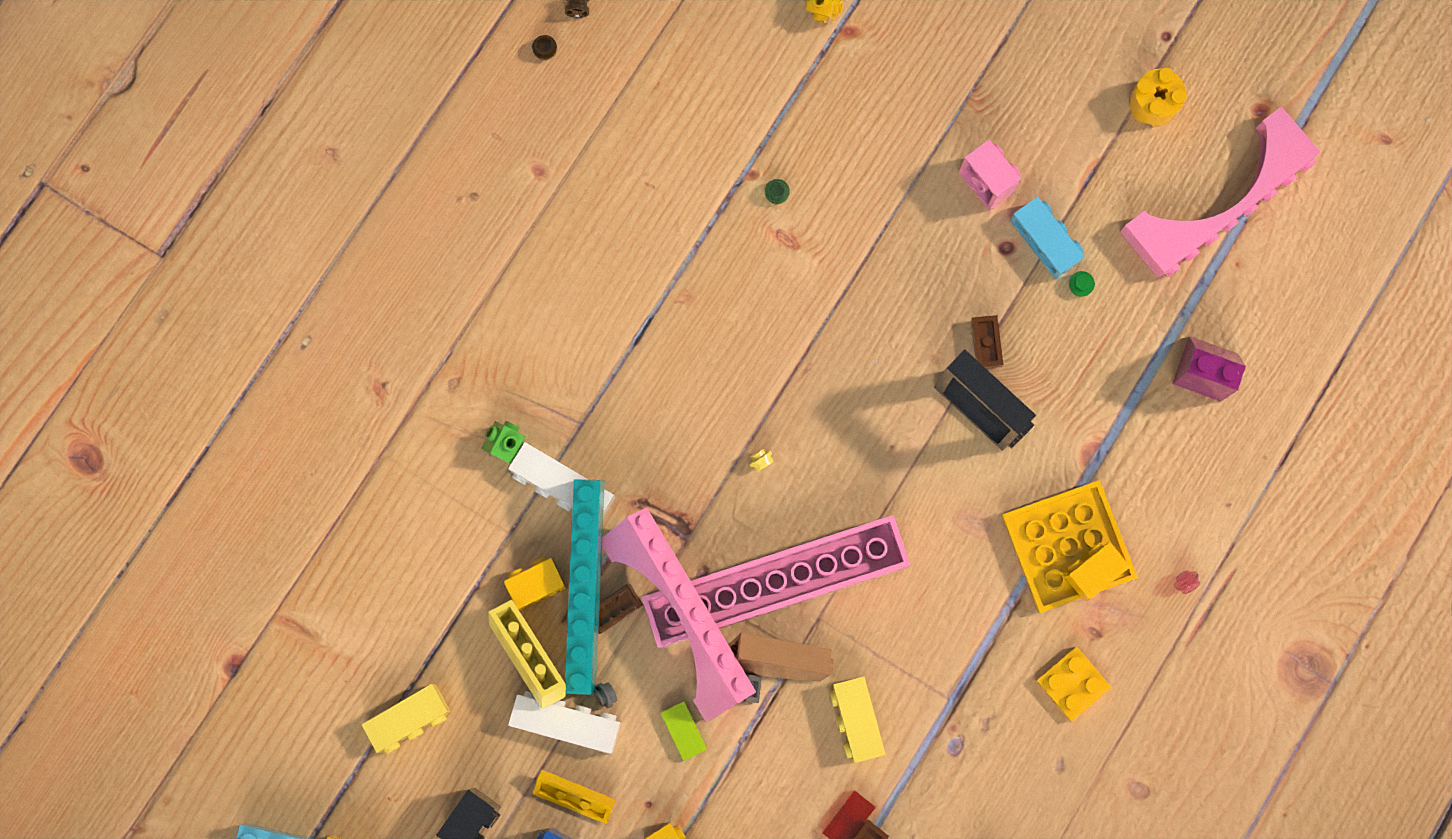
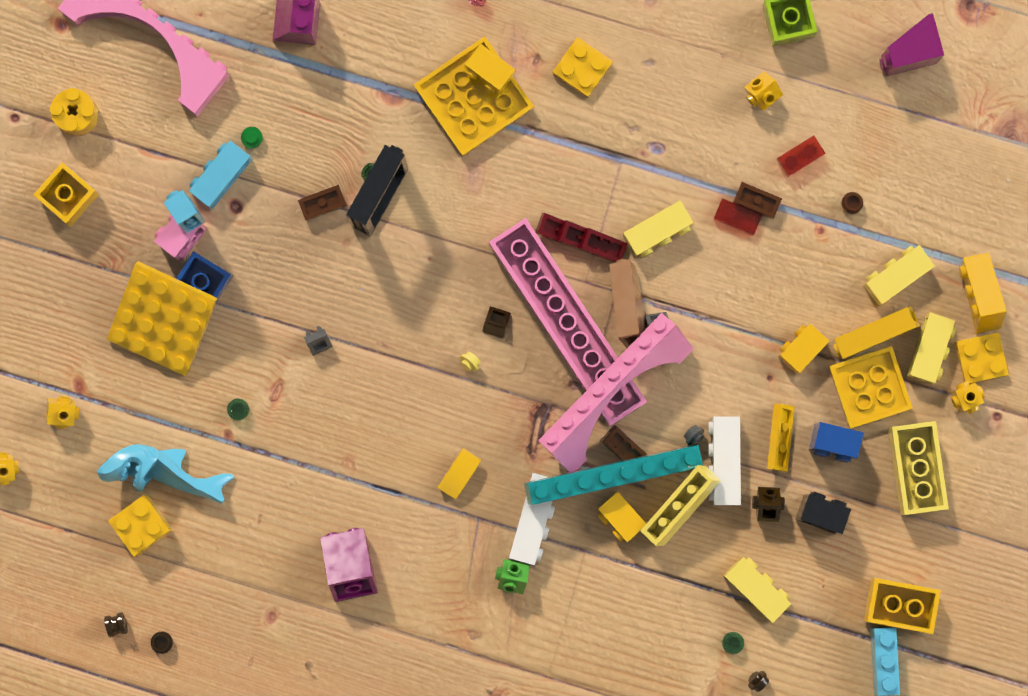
camera: 105 degrees left, 5 degrees up
(302, 690) = (758, 681): none -> dark brown plate
(355, 673) = (733, 642): none -> clear green plate
(500, 759) = (768, 504): none -> dark brown brick
(570, 264) = (348, 564): none -> slope
(637, 413) = (459, 473): none -> yellow slope
(677, 54) = (140, 525): none -> yellow brick
(683, 731) = (704, 365): lime tile -> none
(737, 94) = (148, 463): none -> medium azure piece
(799, 503) = (496, 322): none -> dark brown slope
(829, 296) = (318, 341): none -> dark grey tile
(871, 626) = (581, 238): none -> dark red slope
(900, 131) = (161, 318): none -> yellow plate
(930, 185) = (204, 275): none -> blue brick
(1014, 172) = (183, 211): none -> medium azure brick
(1066, 65) = (66, 194): none -> yellow brick

